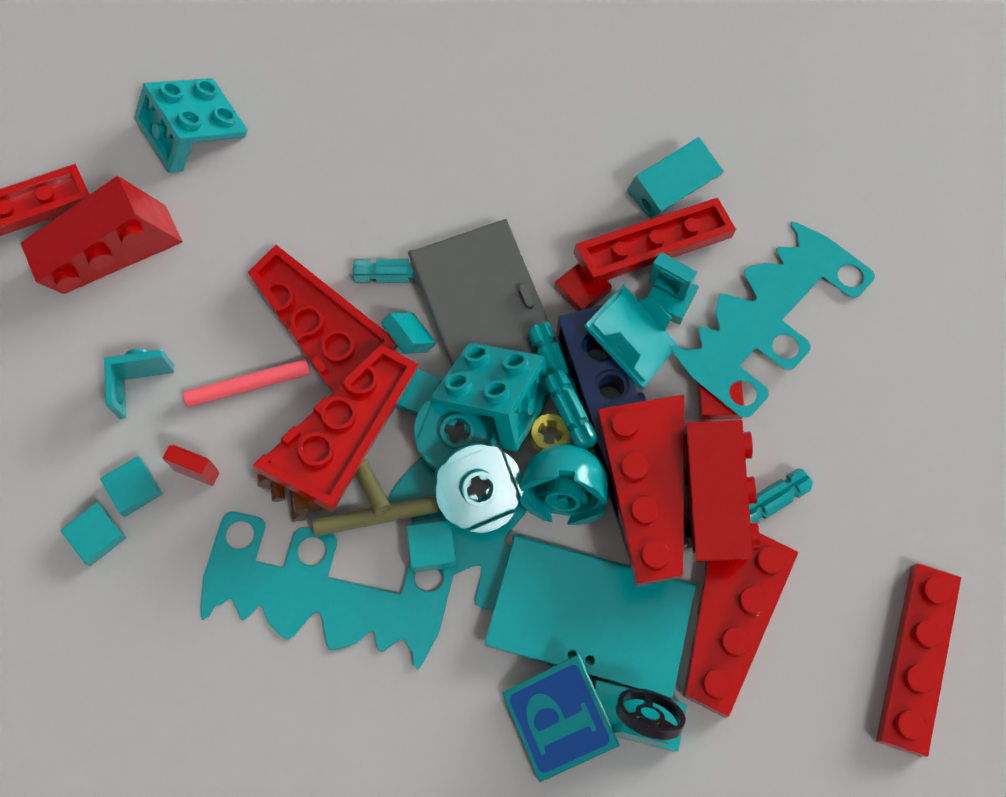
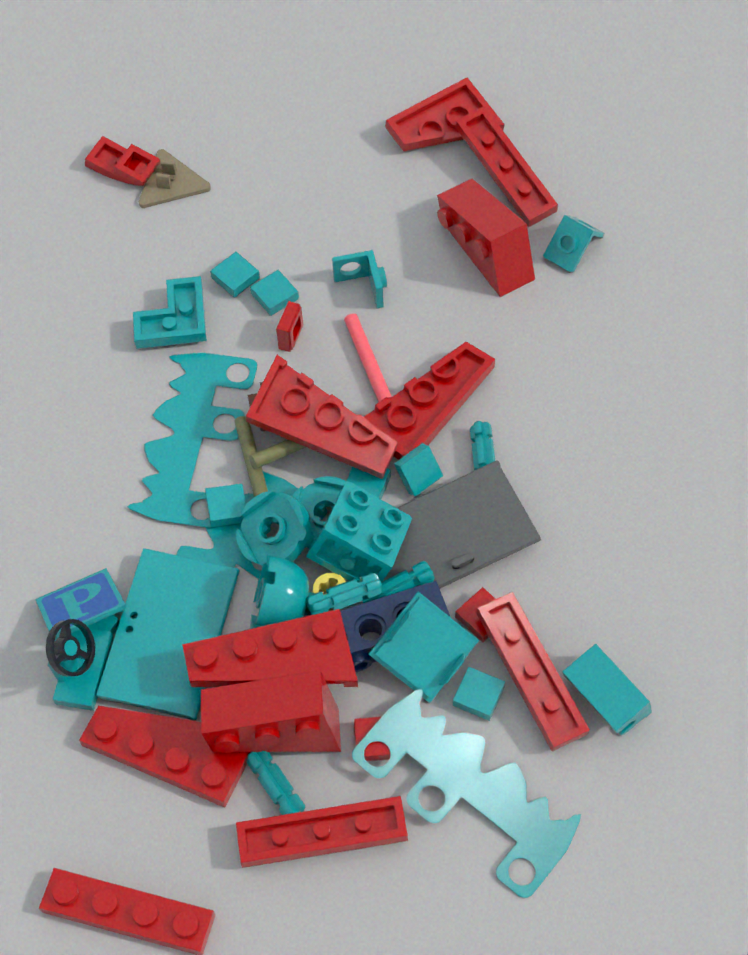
camera: 90 degrees right, 10 degrees down
(129, 158) = (570, 242): none -> teal bracket
(158, 602) = (178, 323): none -> teal plate
(183, 114) = (622, 280): teal bracket -> none
(672, 276) = (487, 679): teal tile -> none
(827, 454) = (321, 831): none -> red plate

